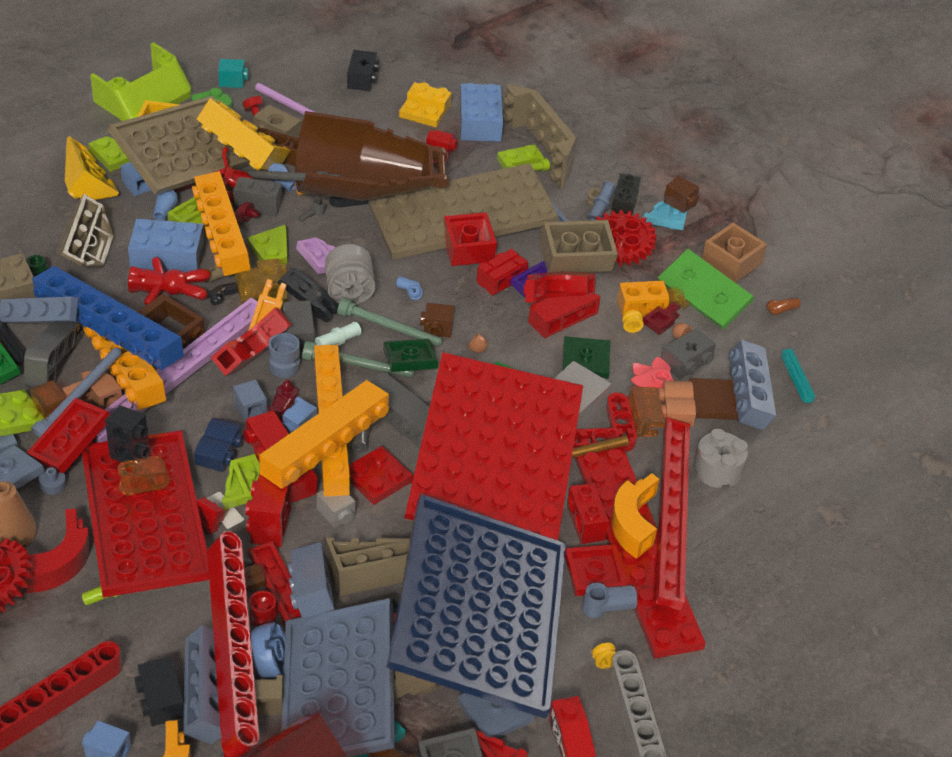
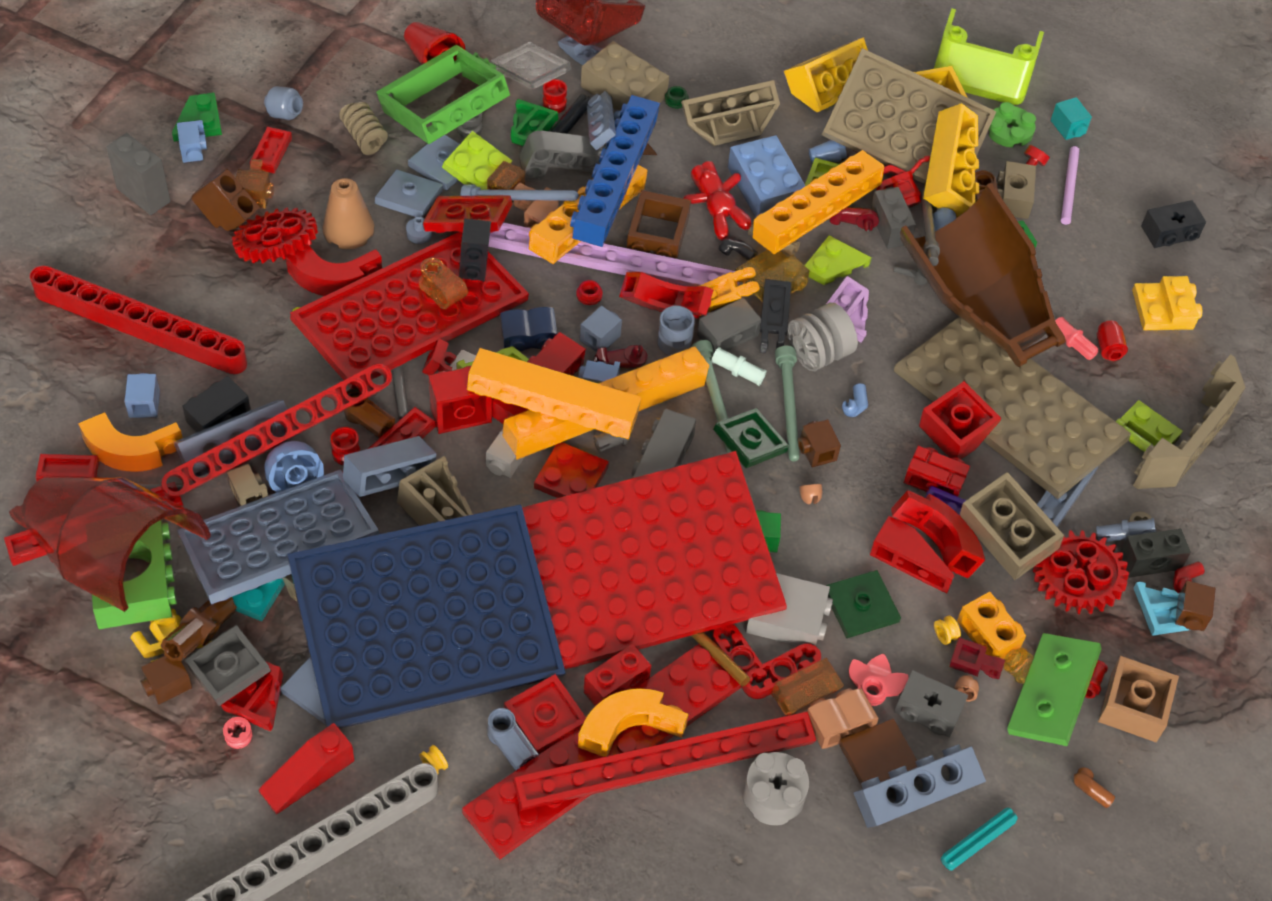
camera: 65 degrees right, 10 degrees up
(203, 395) = (589, 292): none -> red plate
(480, 112) = (1187, 356): medium blue brick -> none
(650, 198) = (1186, 574): none -> red arm

